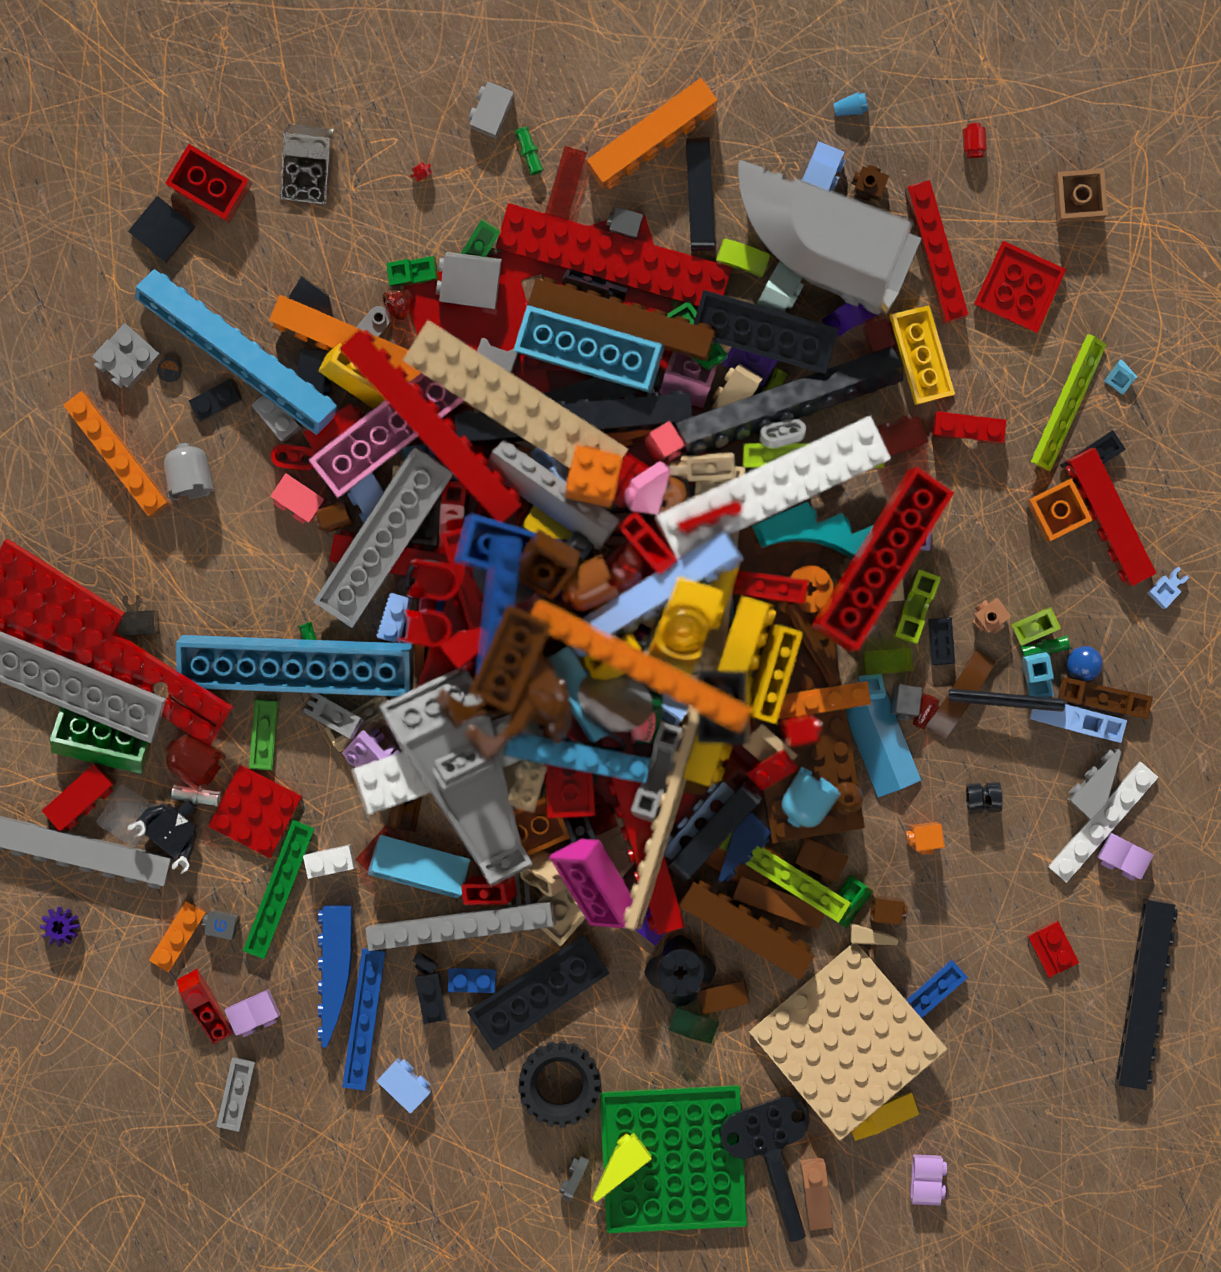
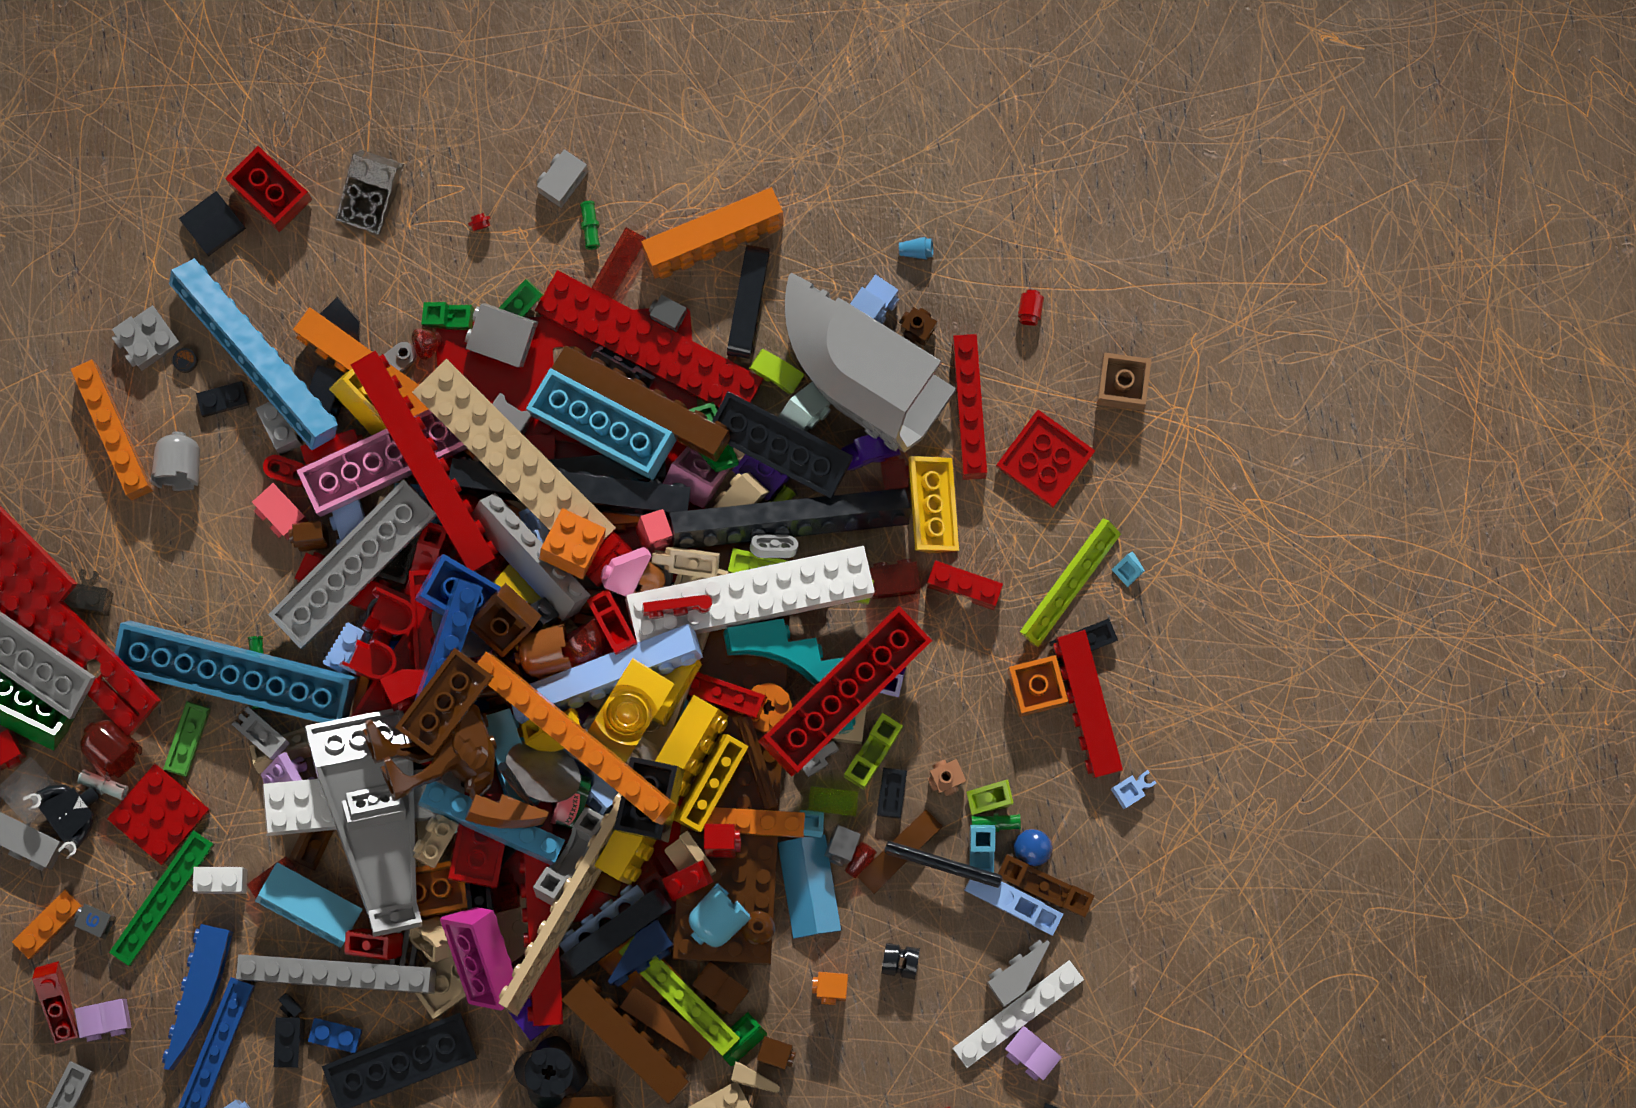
camera: 10 degrees right, 10 degrees down
(589, 749) = (504, 813): none -> dark orange slope

